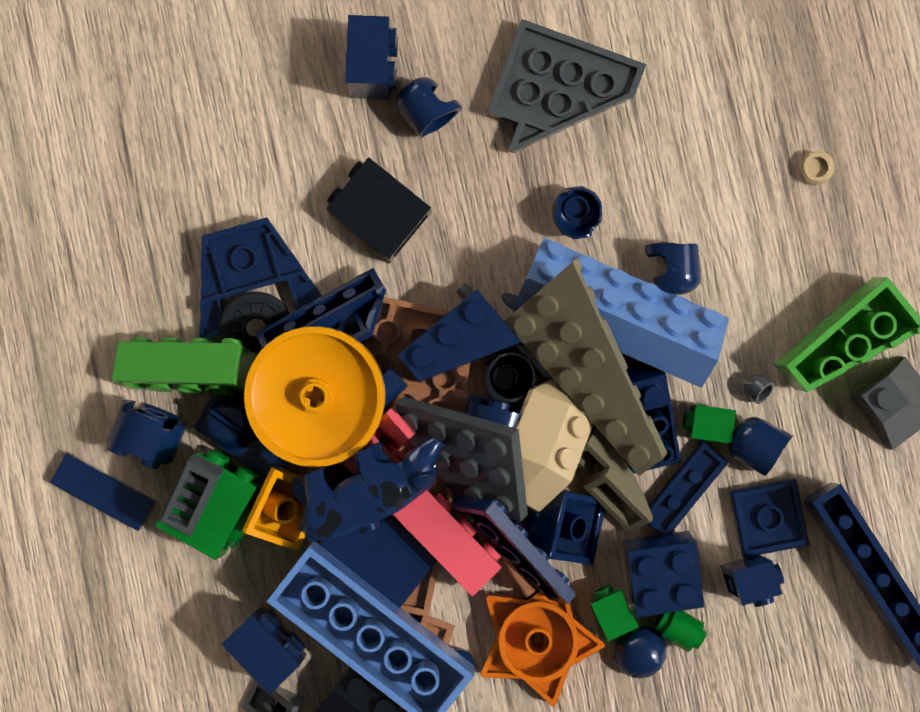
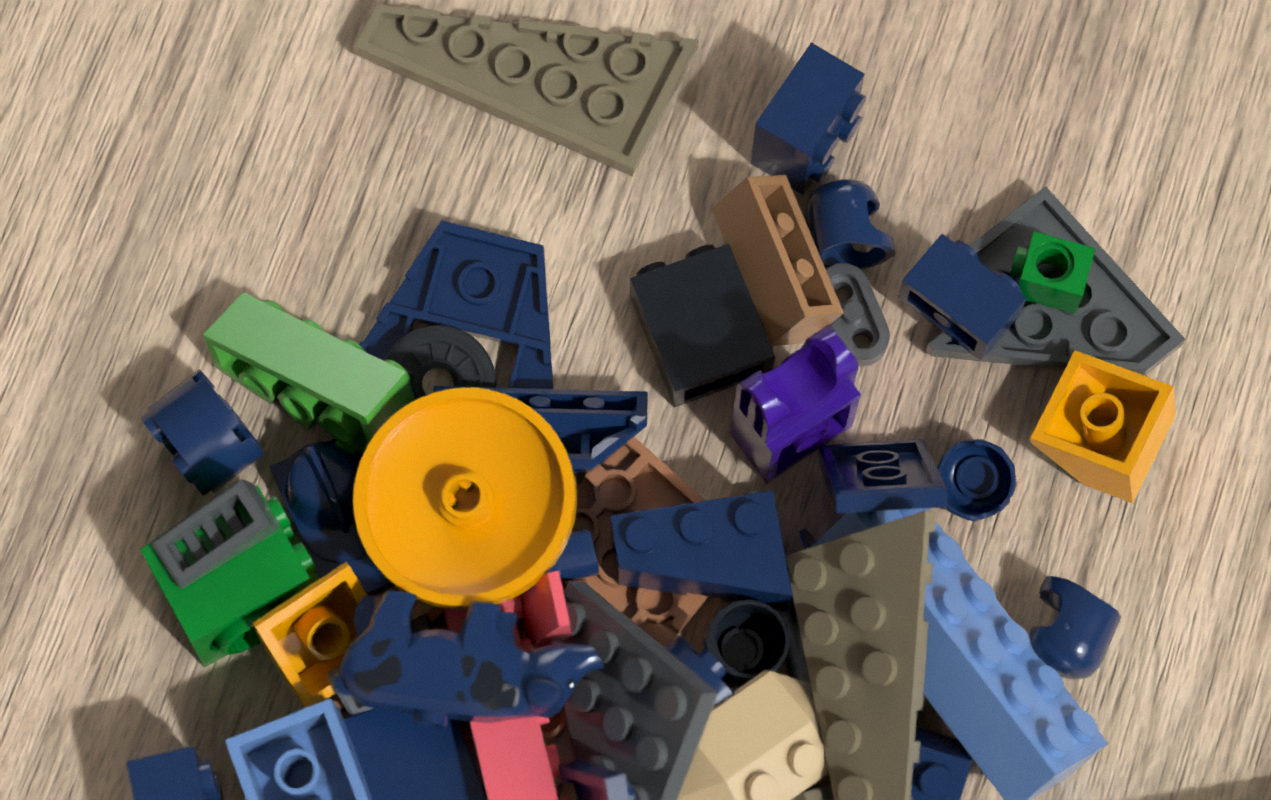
camera: 30 degrees right, 15 degrees down
(103, 491) = (93, 483): dark blue tile -> none
(213, 114) = (550, 78): none -> dark tan wing
(399, 149) = (777, 259): none -> medium nougat brick
(458, 155) = (861, 314): none -> flat silver plate
(462, 228) = (797, 405): none -> dark purple brick
(514, 112) = (962, 295): none -> dark blue brick
(529, 244) = (881, 476): none -> dark blue tile
(563, 57) = (1069, 257): none -> green brick
(630, 140) = (1105, 424): none -> light orange slope

